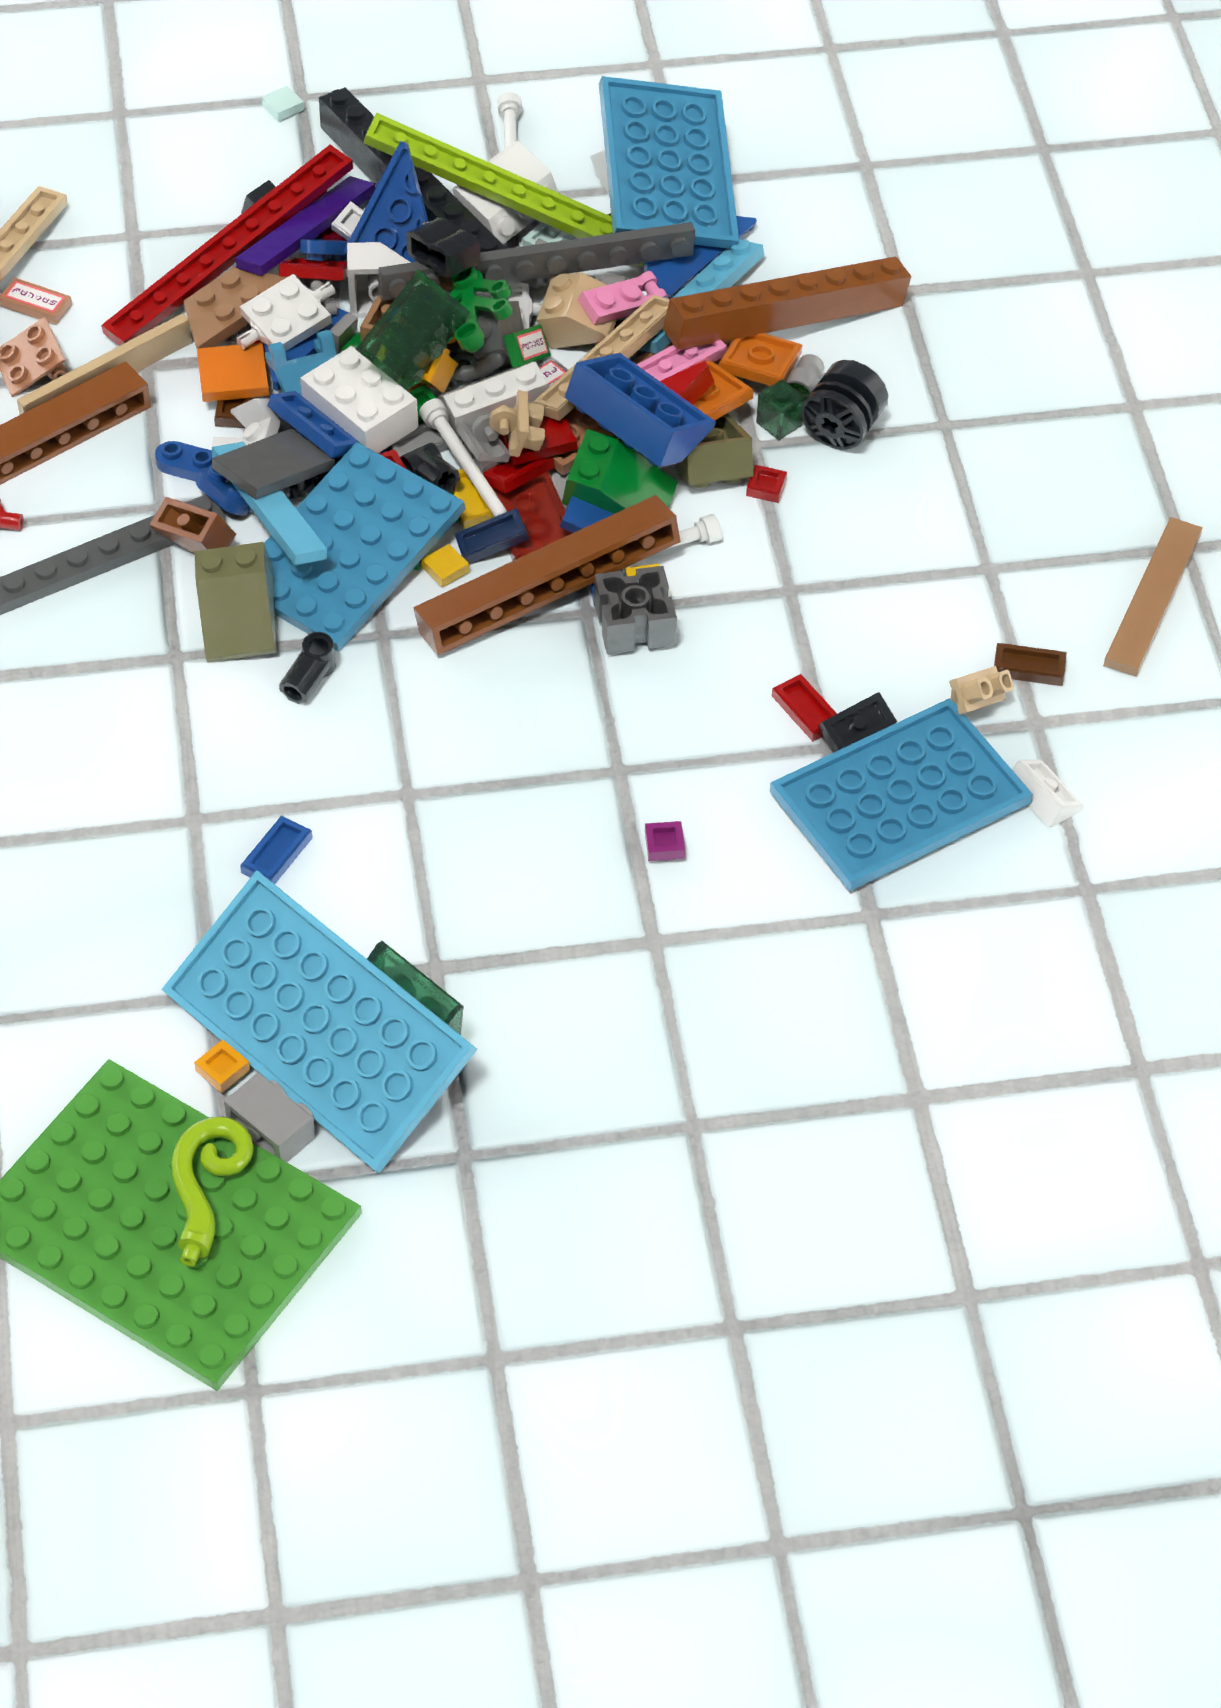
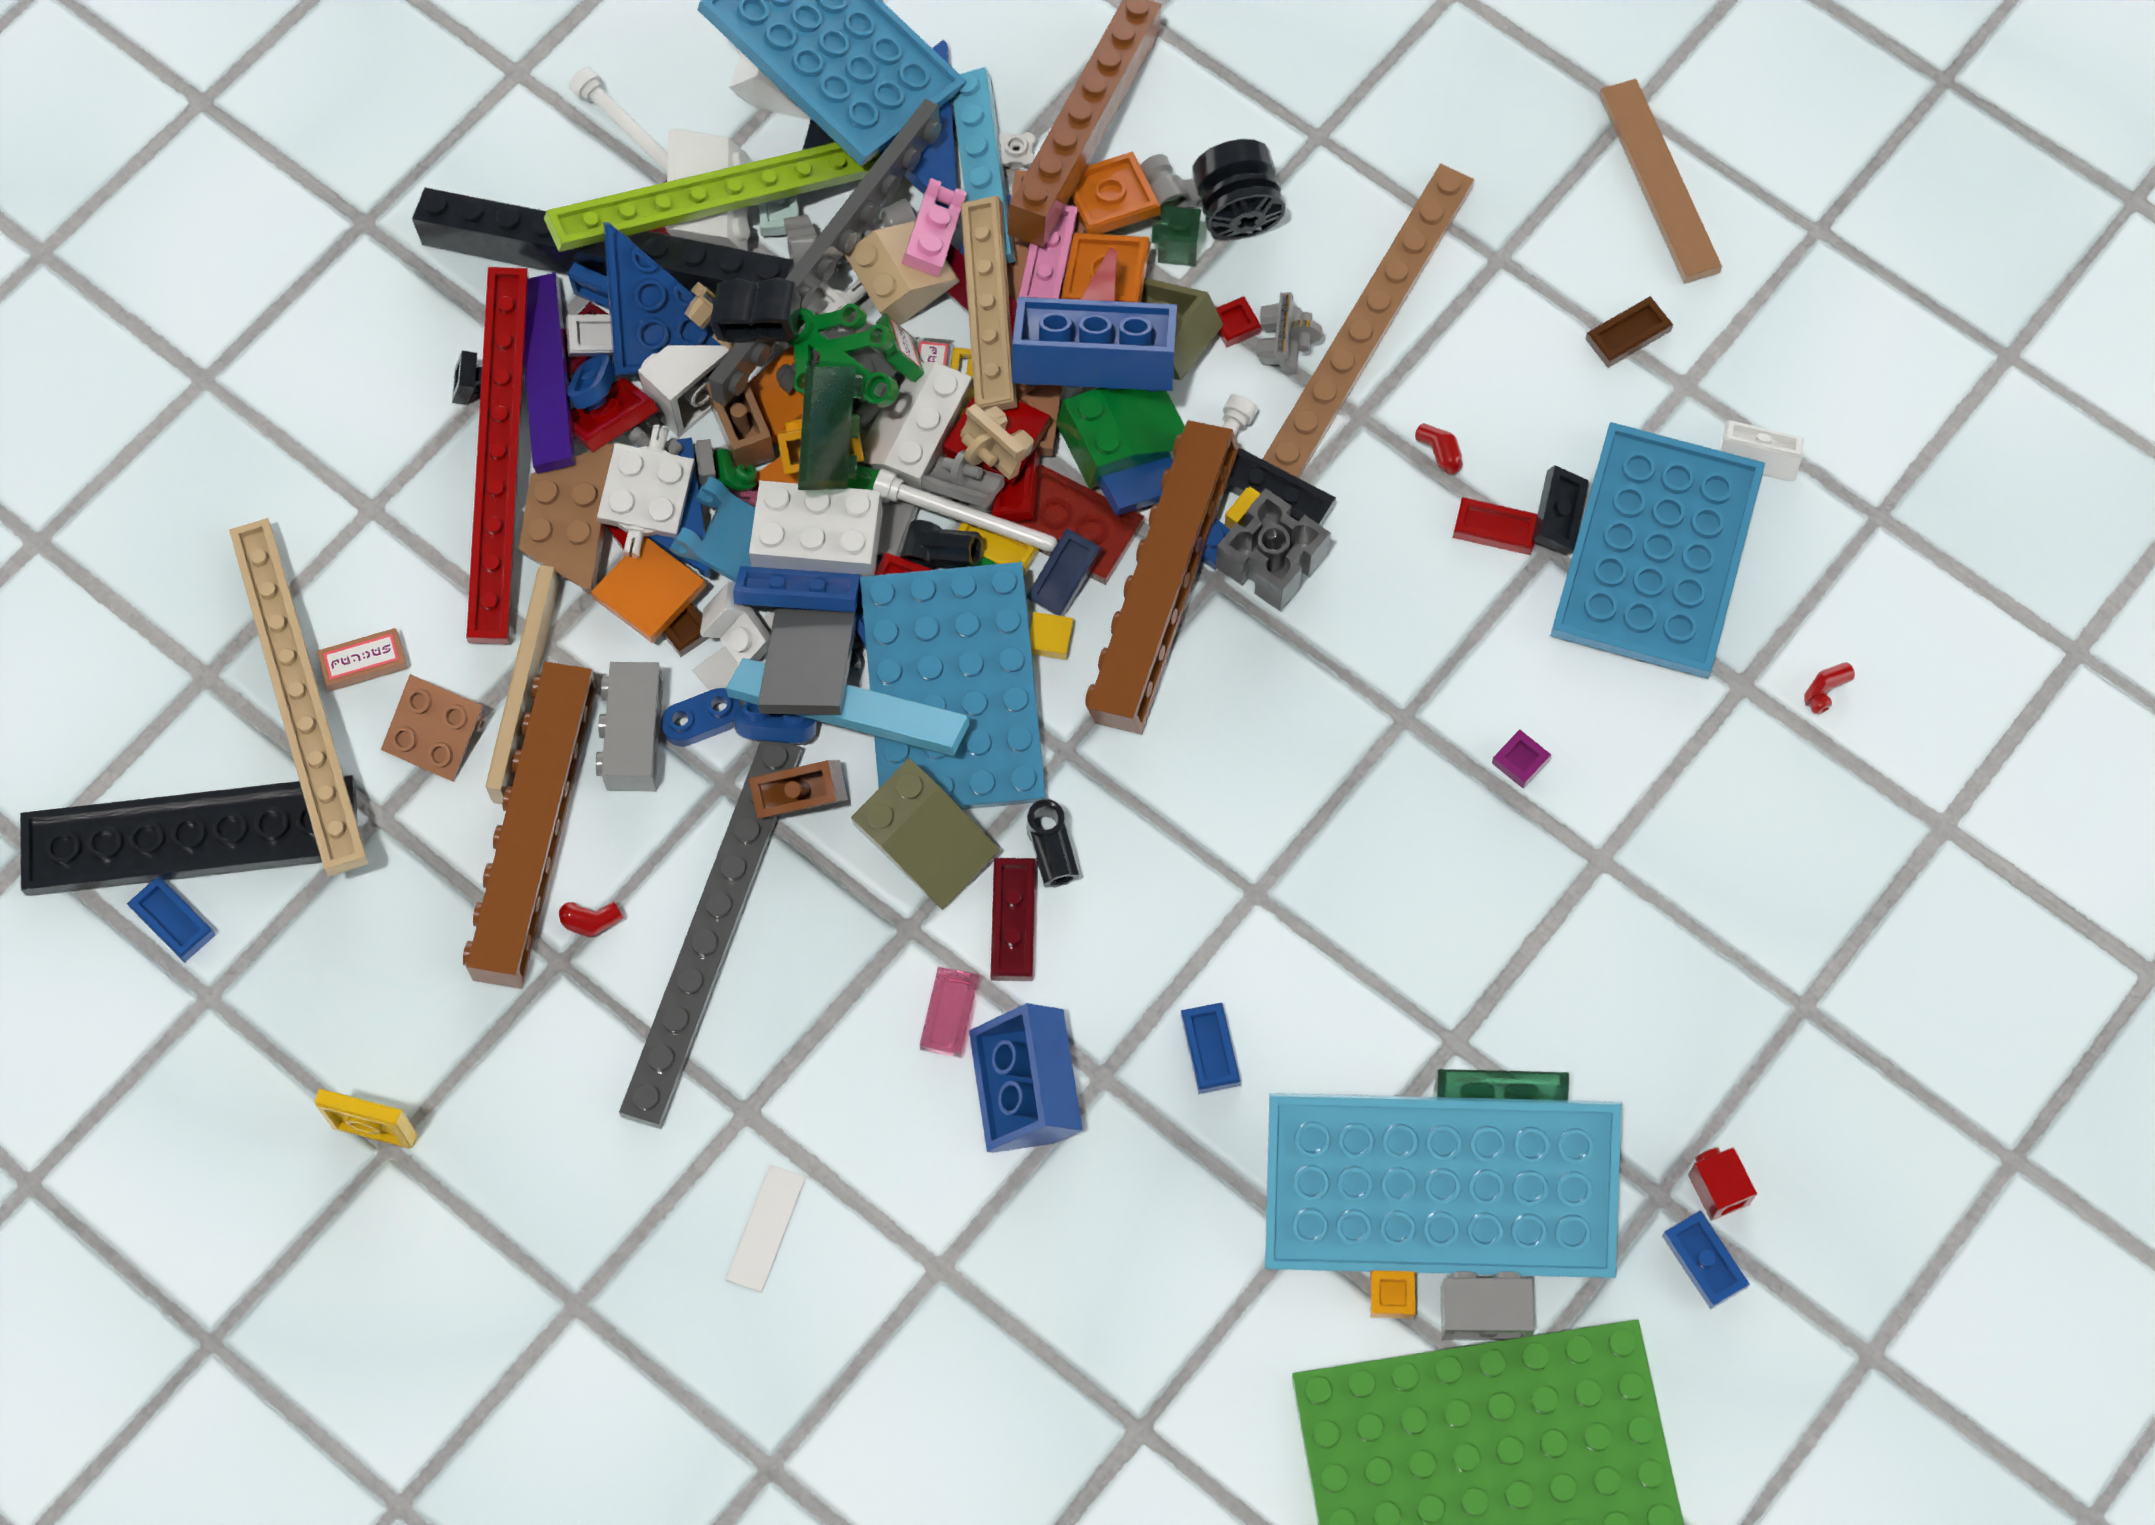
camera: 40 degrees left, 15 degrees up
(137, 433) = (630, 726): none -> light grey brick
(144, 714) = (949, 1012): none -> clear pink tile
(144, 778) = (1025, 1078): none -> blue slope
(200, 1221) = (1548, 1458): lime plant -> none
(239, 696) = (1013, 919): none -> dark red tile
(282, 103) = (359, 246): light aqua tile -> none
(445, 1208) = (1705, 1260): none -> blue plate
(507, 1172) = (1721, 1182): none -> red brick
(684, 587) = (1260, 474): none -> black plate
(791, 506) = (1293, 333): none -> light grey hips
(819, 639) = (1443, 445): none -> red arm
(853, 541) = (1369, 321): none -> medium nougat plate
(925, 948) = (1829, 678): none -> red arm
(980, 689) = (1629, 394): tan hips -> none

